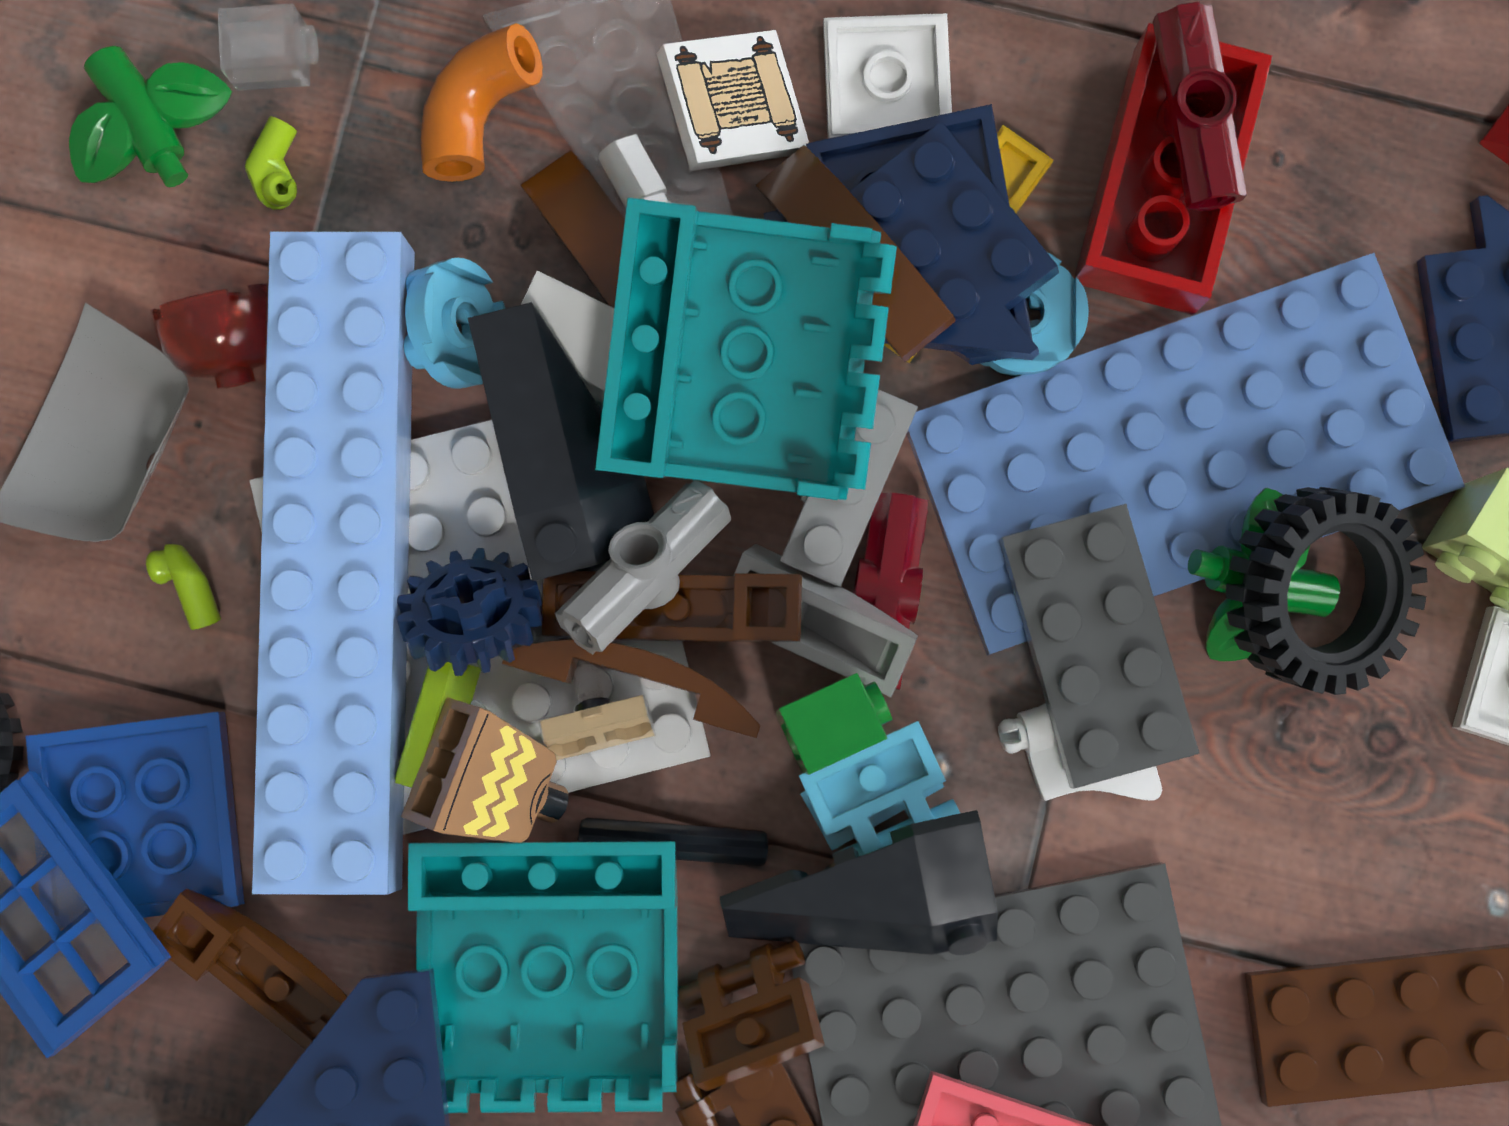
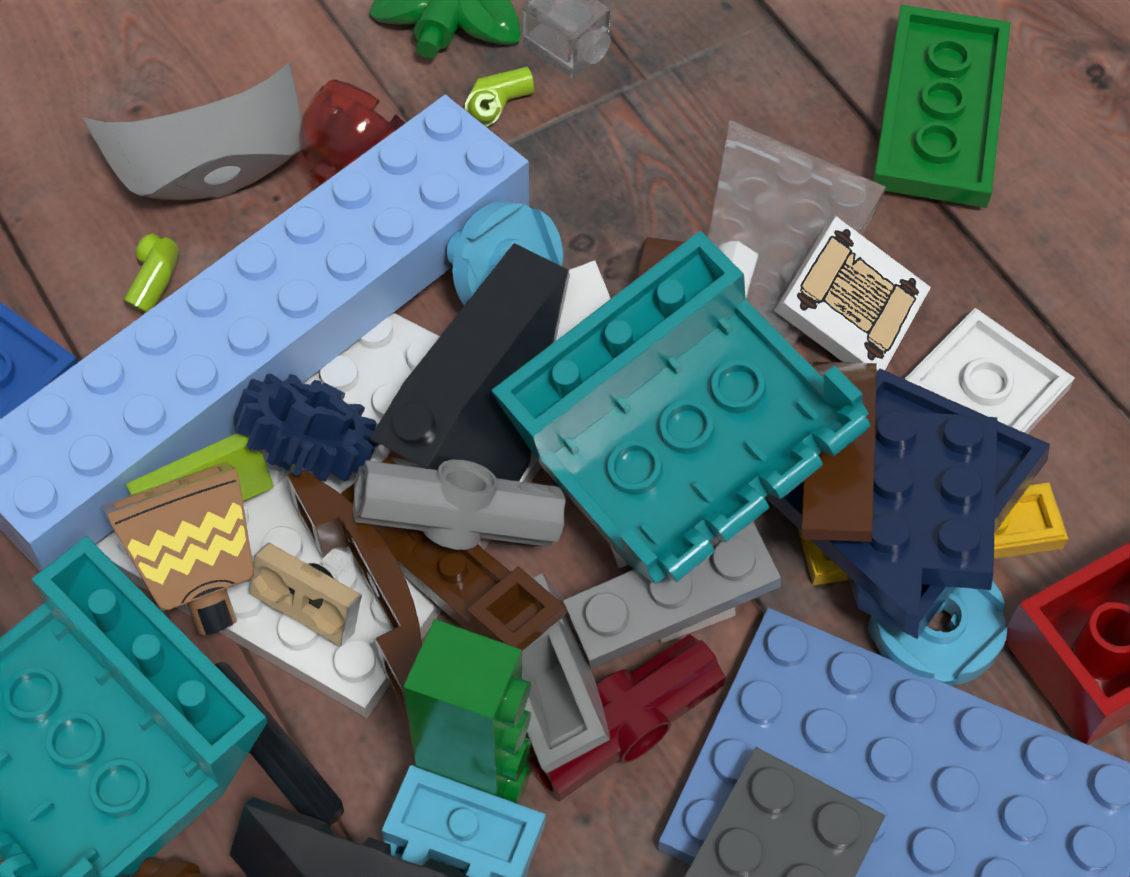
camera: 45 degrees right, 25 degrees down
(466, 95) = (668, 151): orange cylinder -> none

